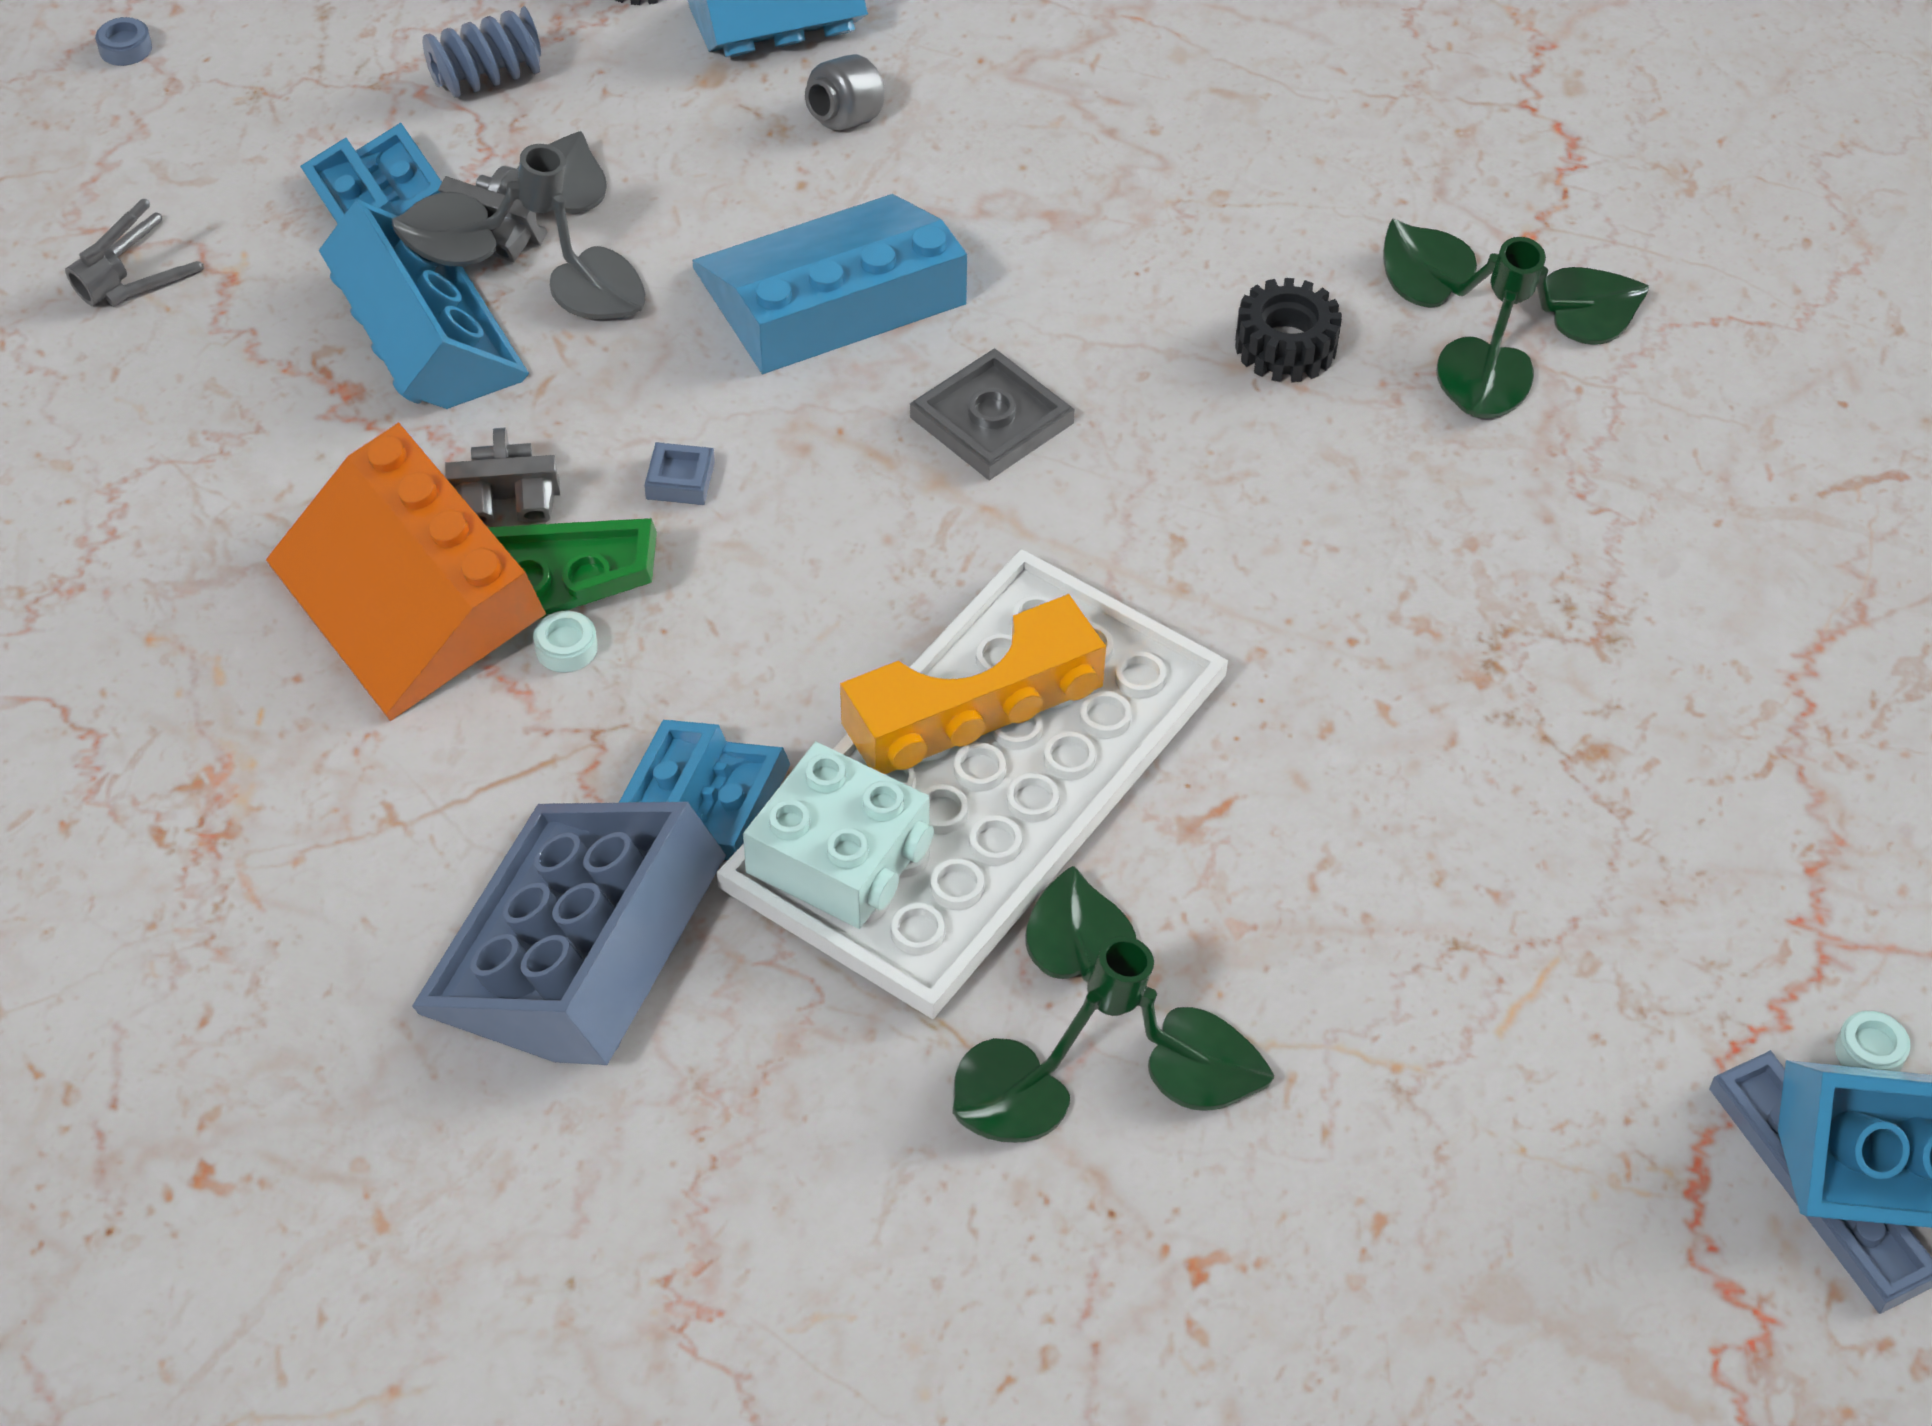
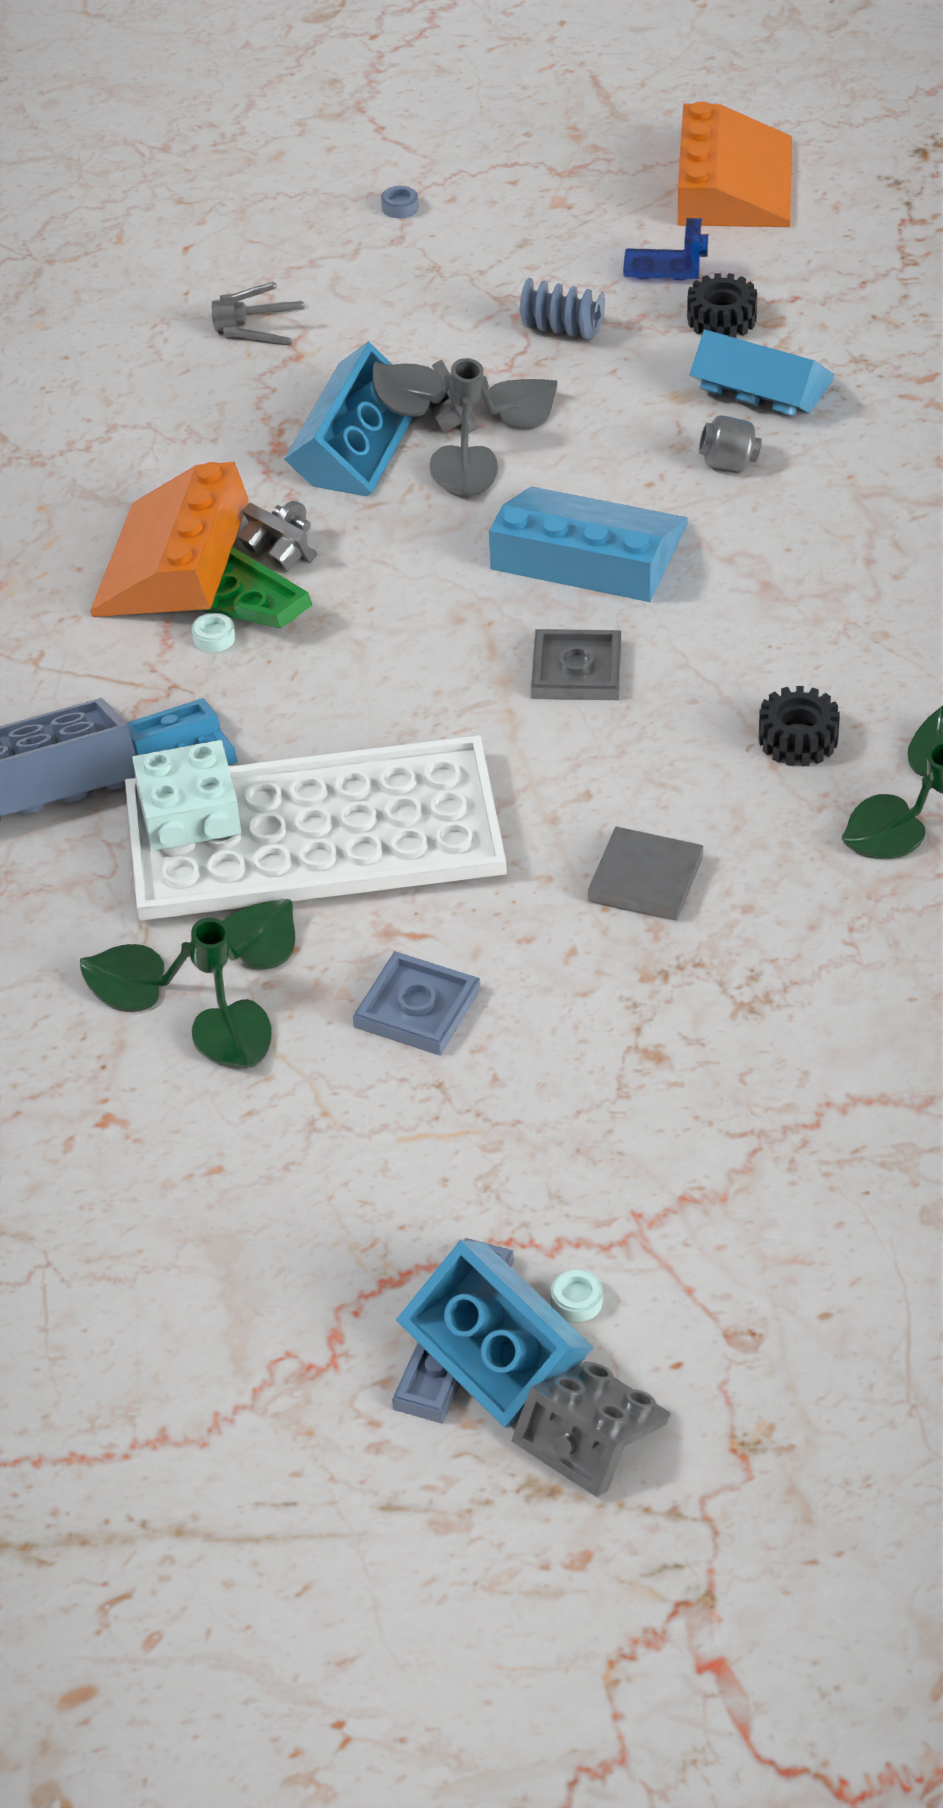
camera: 50 degrees right, 5 degrees down
(382, 173) = (421, 342): dark azure slope -> none
(679, 473) = (376, 589): sand blue tile -> none
(907, 716) = (394, 789): light orange arch -> none
(1327, 877) = (416, 1003): none -> sand blue tile
(1348, 576) = (645, 873): none -> flat silver tile

